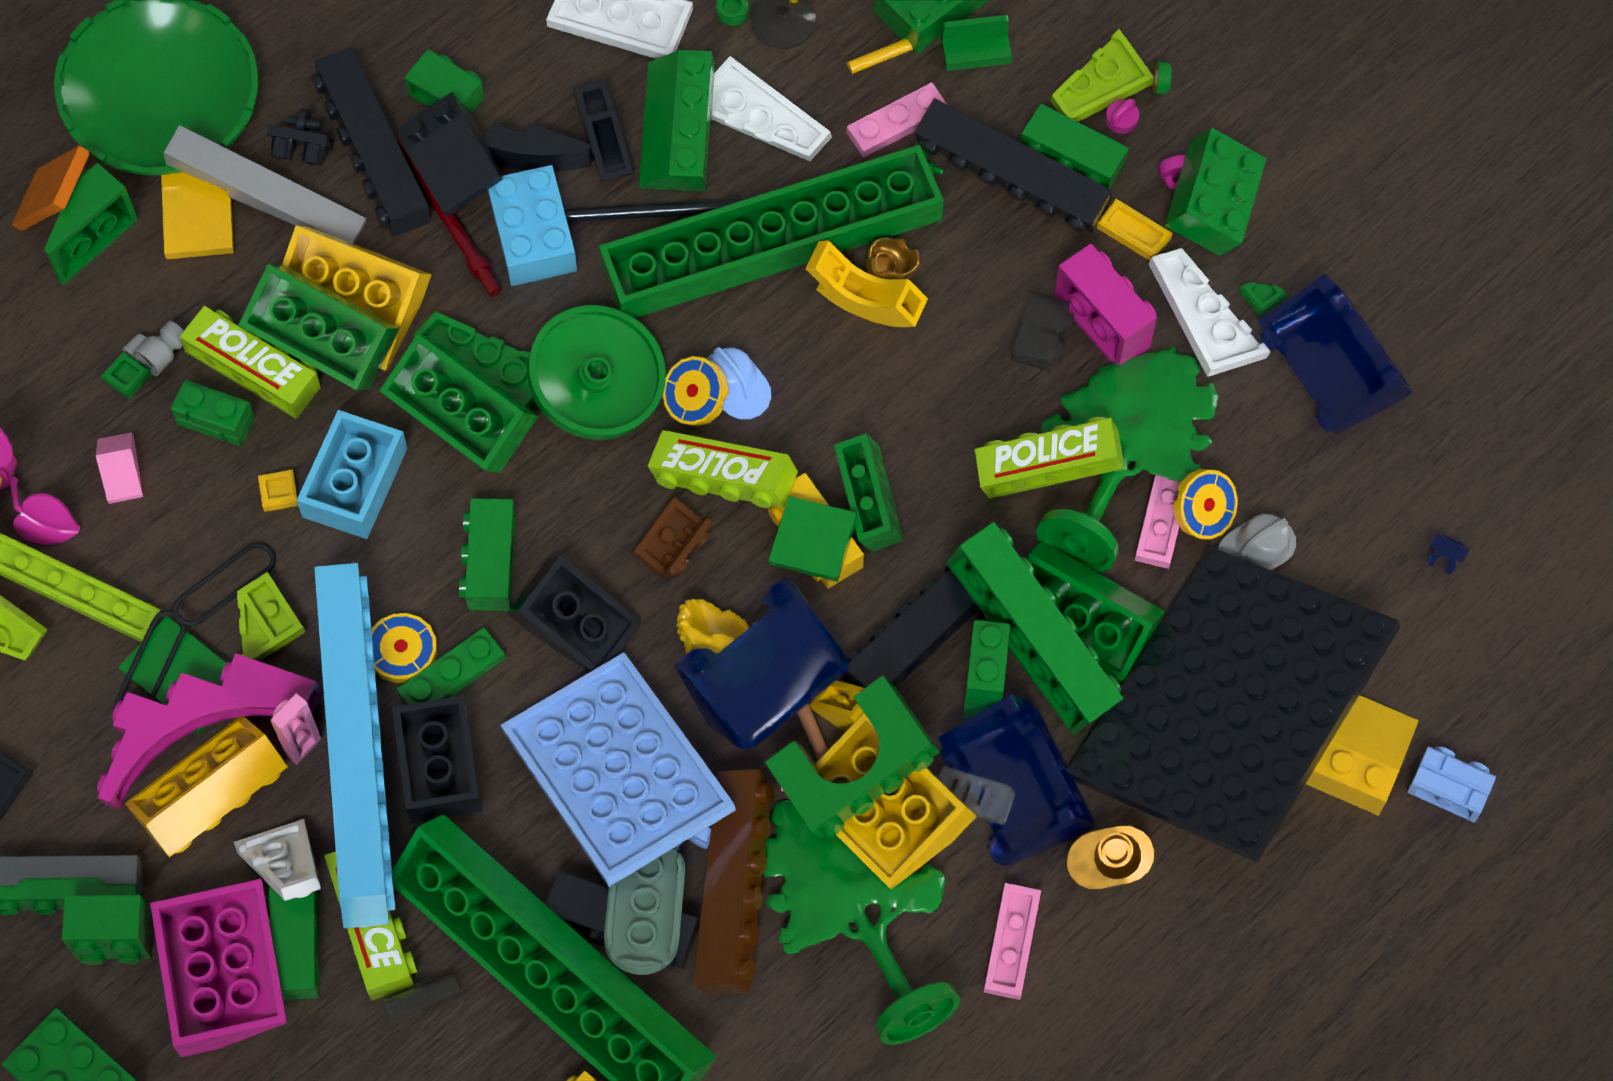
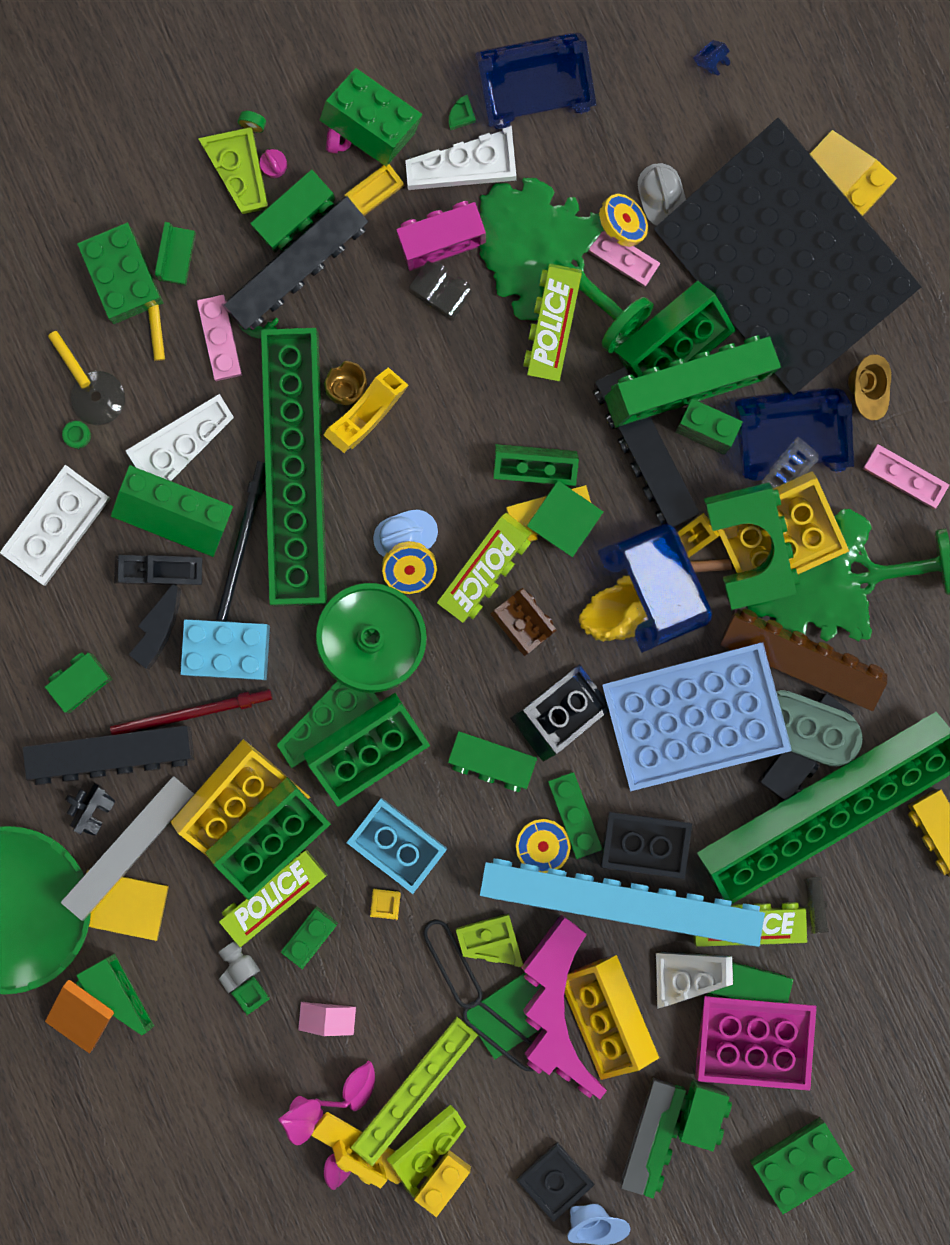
camera: 65 degrees left, 20 degrees up
(295, 728) = (597, 943): bright pink plate -> none
(450, 153) = (148, 695): black slope -> none
(1452, 783) = (889, 125): light blue brick -> none

